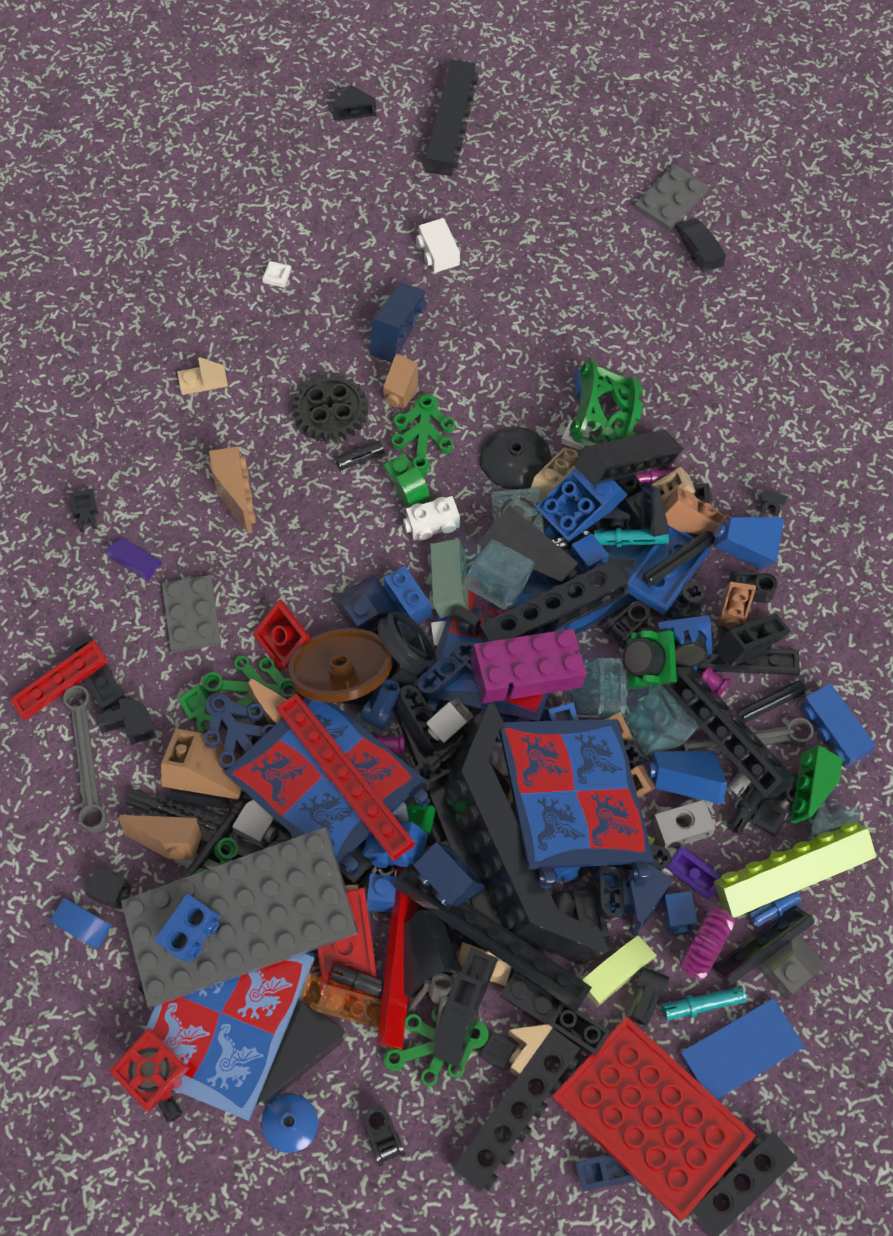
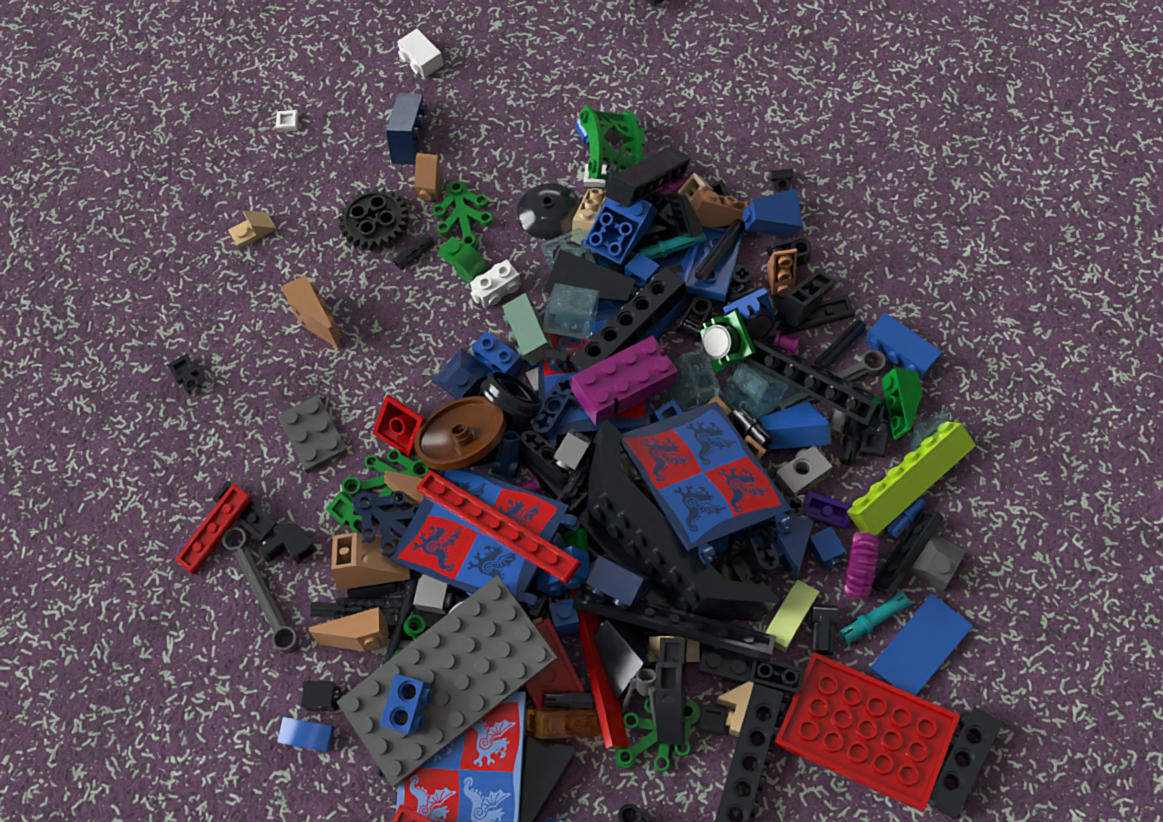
camera: 10 degrees left, 0 degrees up
(133, 558) = (244, 402): dark purple slope -> none
(601, 1173) = (839, 793): dark blue slope -> none
(646, 759) = (753, 427): none -> black pin

